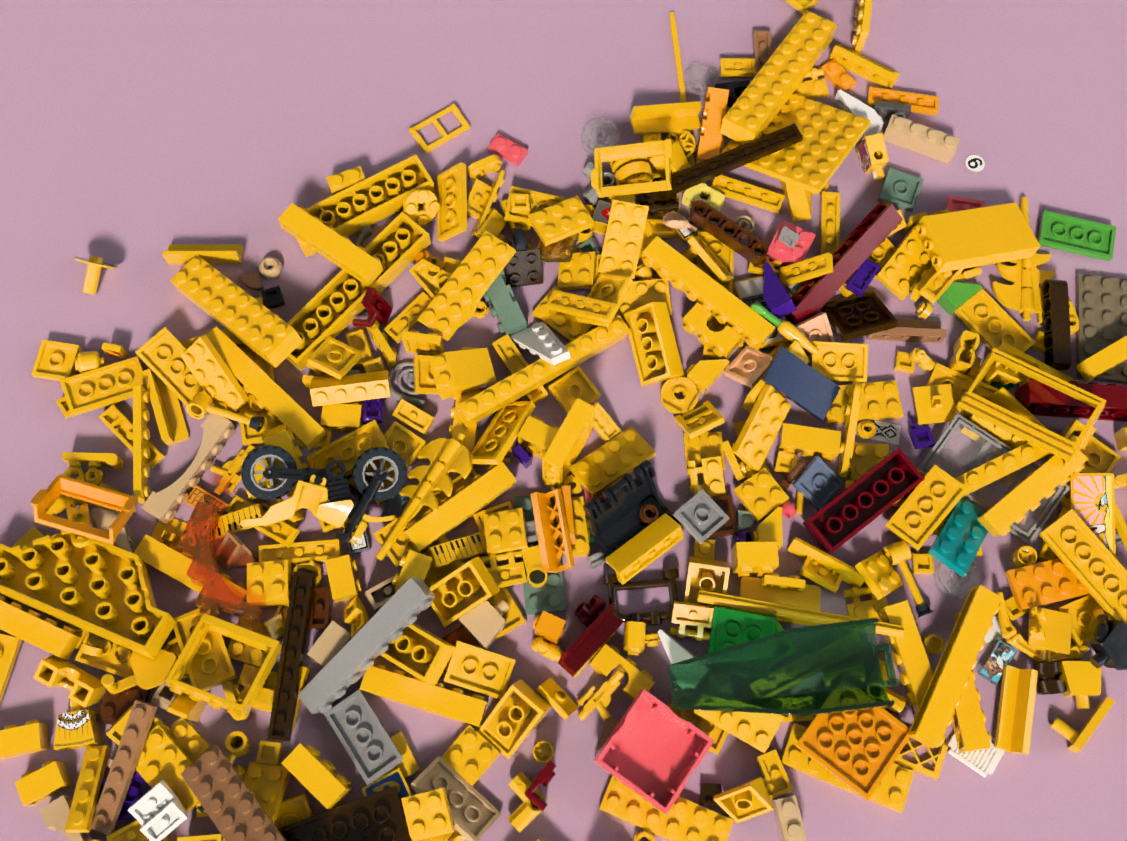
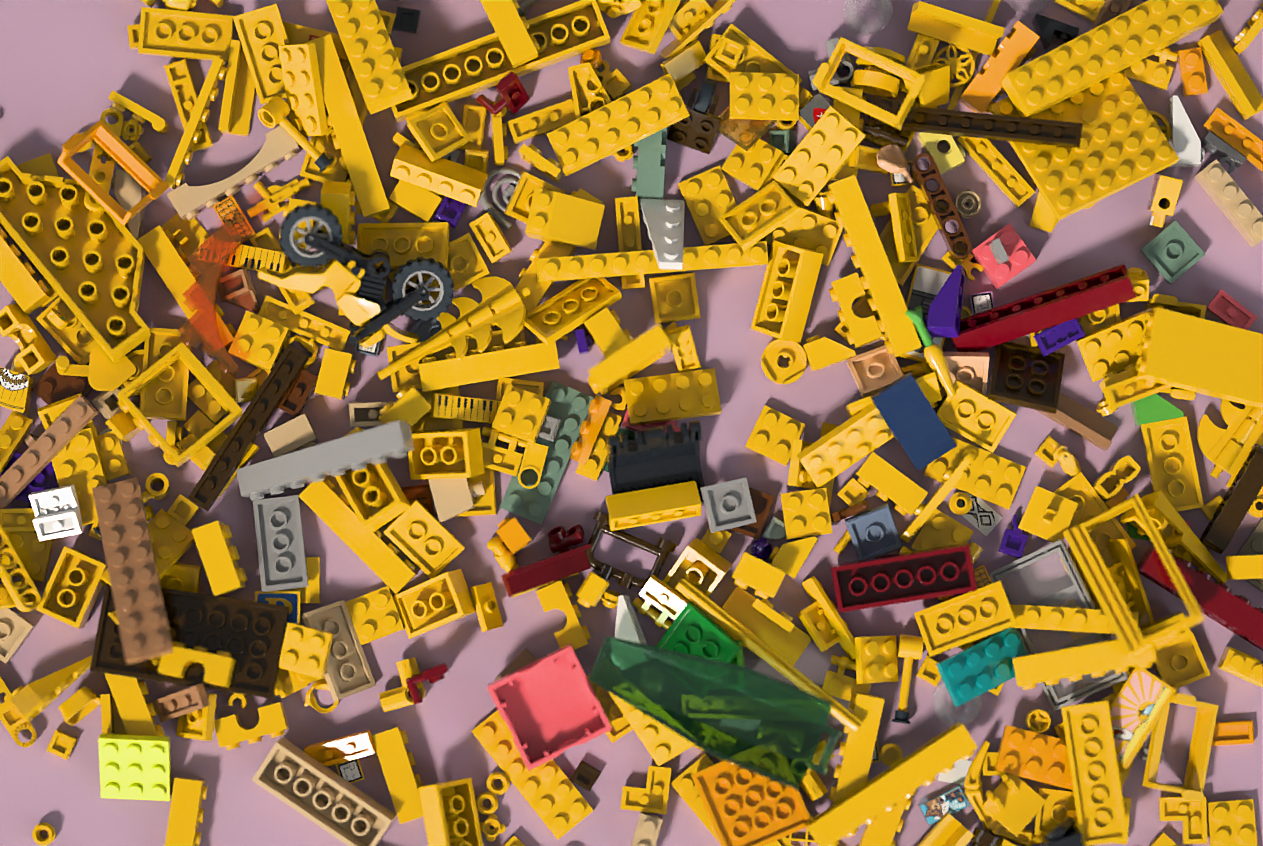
camera: 35 degrees right, 15 degrees up
(355, 615) = (330, 422): yellow slope -> none
(543, 752) = (445, 650): yellow wheel -> none
(548, 532) = (564, 438): light orange fence -> none
(582, 306) = (729, 213): yellow plate -> none
(596, 560) = (599, 490): light grey bush -> none
(601, 698) = (528, 630): yellow piece -> none
(654, 513) = (684, 475): reddish brown plate -> none
(699, 420) = (788, 405): yellow plate -> none
(712, 476) = (767, 467): yellow plate -> none
(745, 800) = (613, 798): yellow slope -> none
(788, 509) = (827, 543): coral hinge -> none
(806, 269) = (997, 297): yellow plate -> none
(829, 222) = (1065, 252): yellow plate -> none

